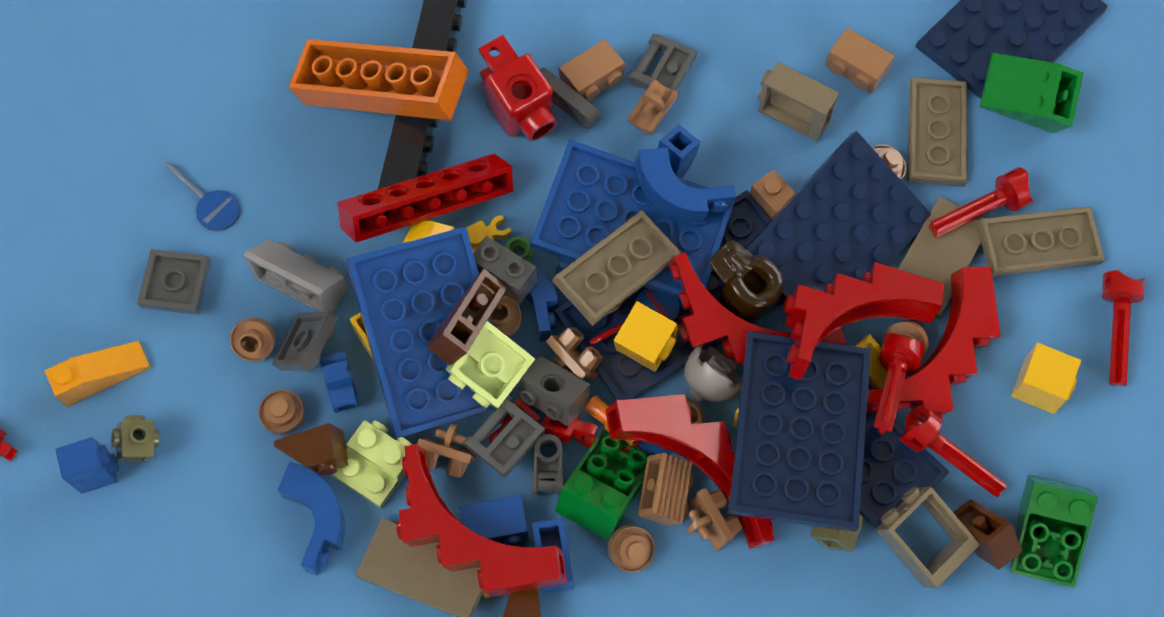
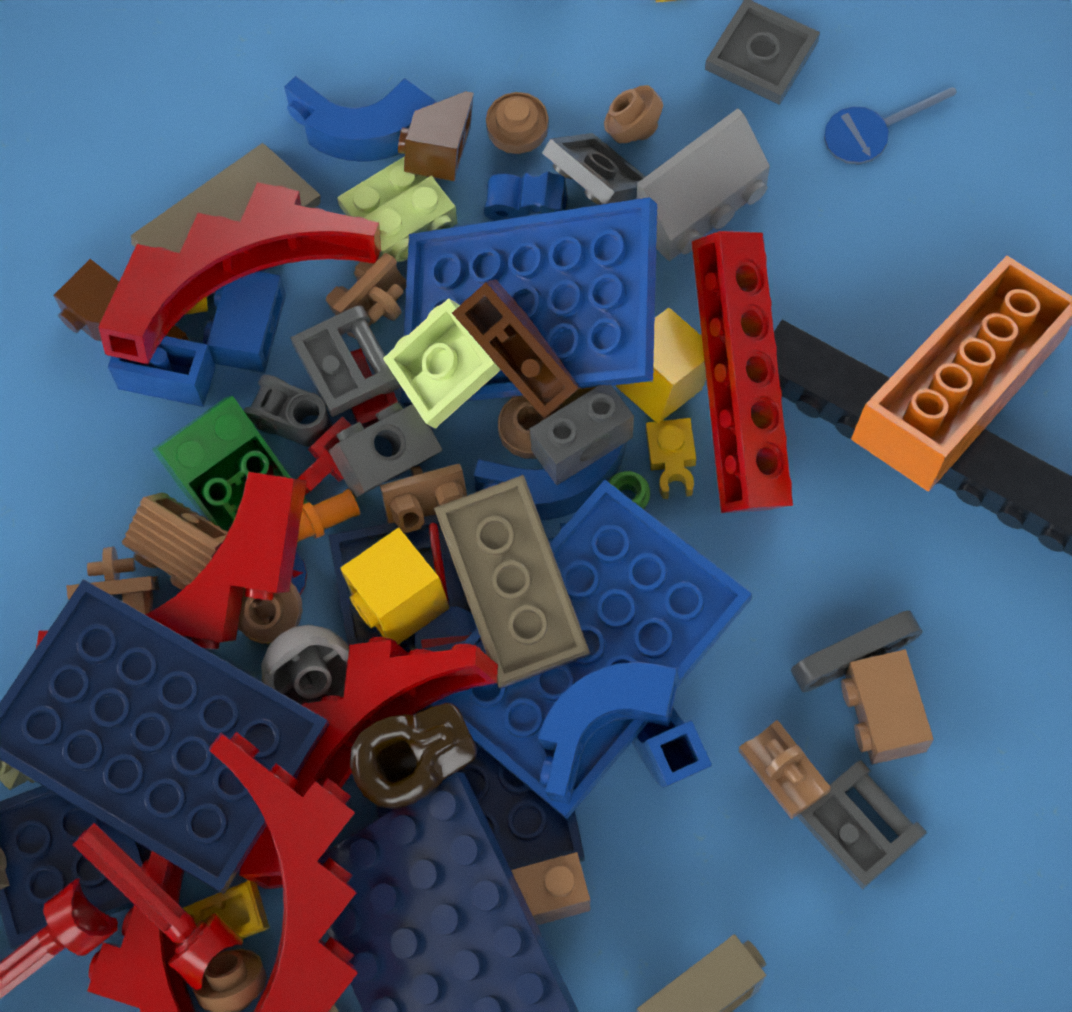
camera: 115 degrees right, 0 degrees up
(516, 91) = (879, 563): red piece -> none
(631, 548) = (127, 470): medium nougat plate -> none

